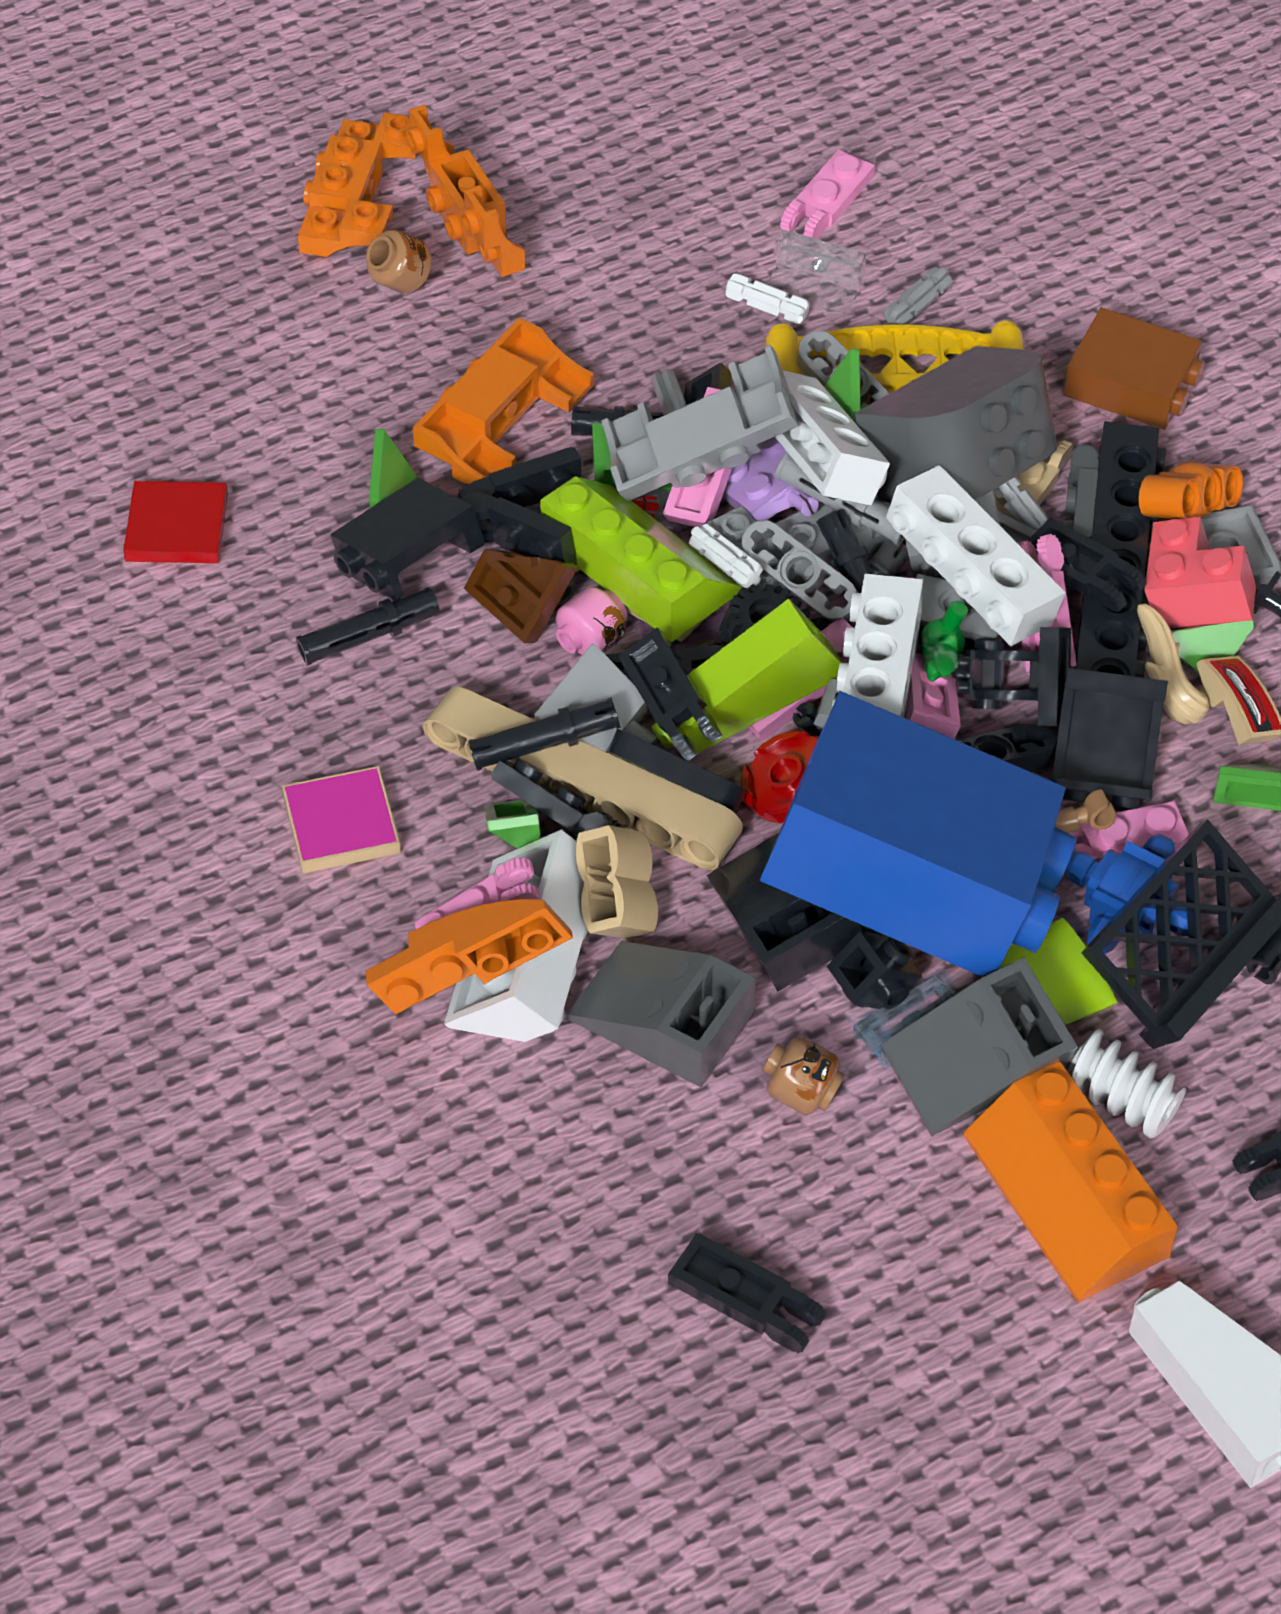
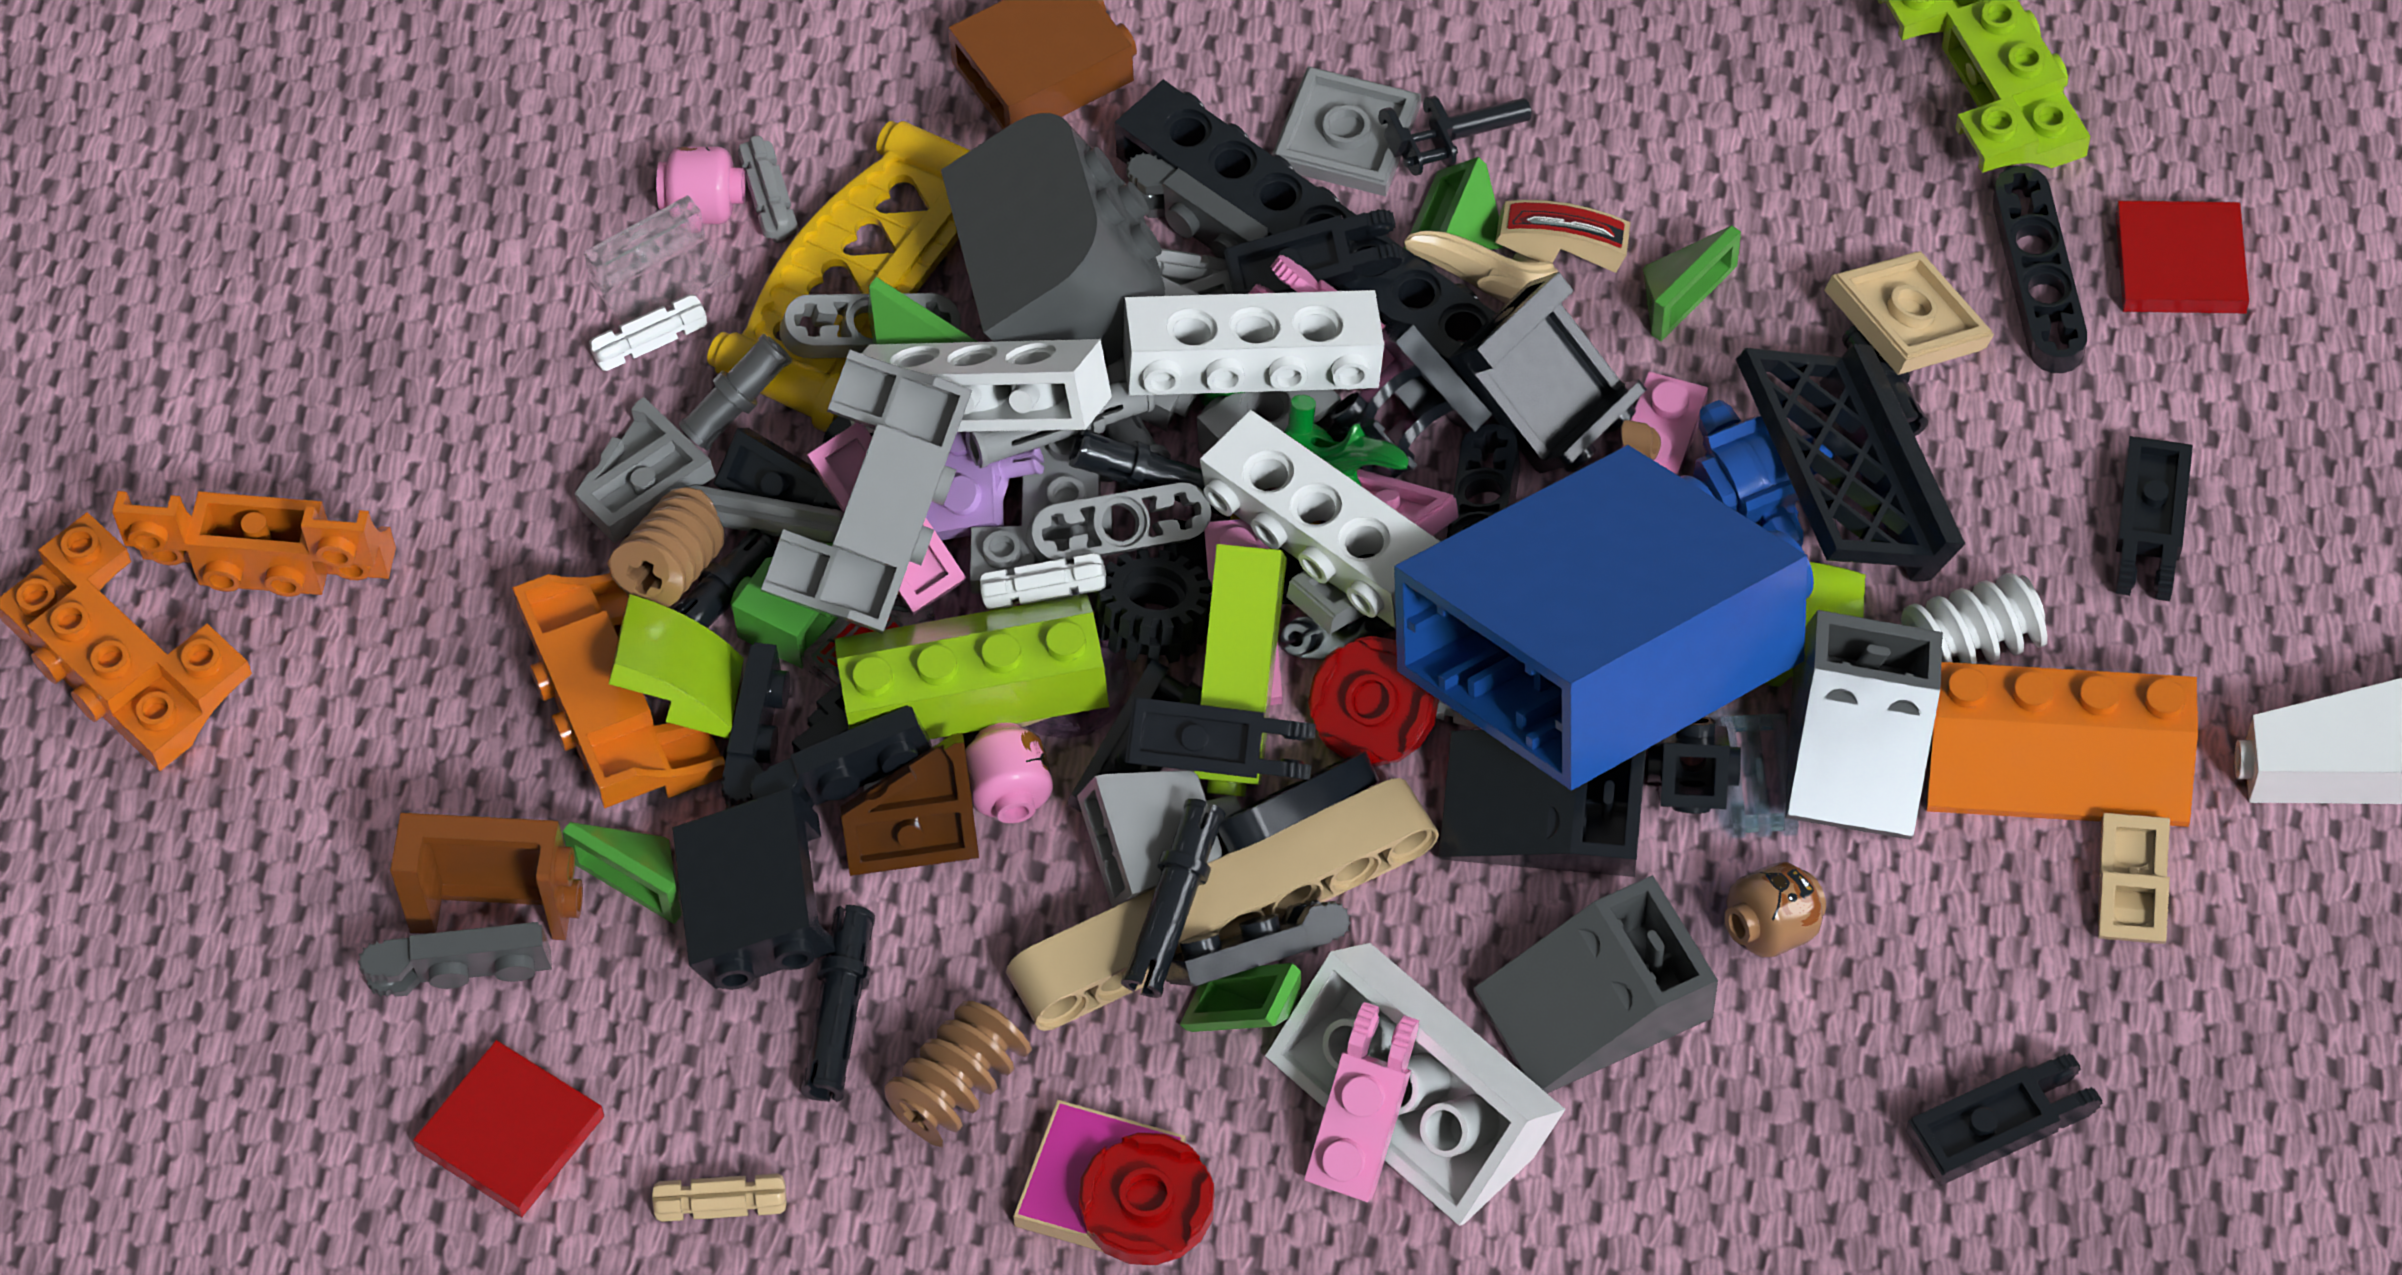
camera: 55 degrees left, 5 degrees up
(197, 641) = (719, 1197): none -> tan axle
(264, 433) = (454, 957): none -> dark grey hinge
(310, 387) = (483, 862): none -> dark orange panel
(336, 843) = (1146, 1199): none -> red tile
(359, 702) = (952, 1067): none -> medium nougat piece
(398, 261) = (295, 667): medium nougat head -> none
(472, 941) = (1437, 1105): orange slope -> none
(526, 414) = (679, 662): none -> lime slope
(607, 374) = (669, 547): none -> medium nougat piece
(616, 878) = (1434, 947): tan brick -> none
(661, 345) = (639, 472): none -> light grey wing
(748, 347) = (735, 392): none -> flat silver pin
(828, 194) = (533, 180): bright pink hinge -> none
(890, 263) = (706, 177): none -> bright pink head
(1003, 1286) = (2133, 878): none -> tan slope
(1190, 490) = (1276, 104): orange piece -> none
(1197, 583) = (1410, 175): coral brick -> none

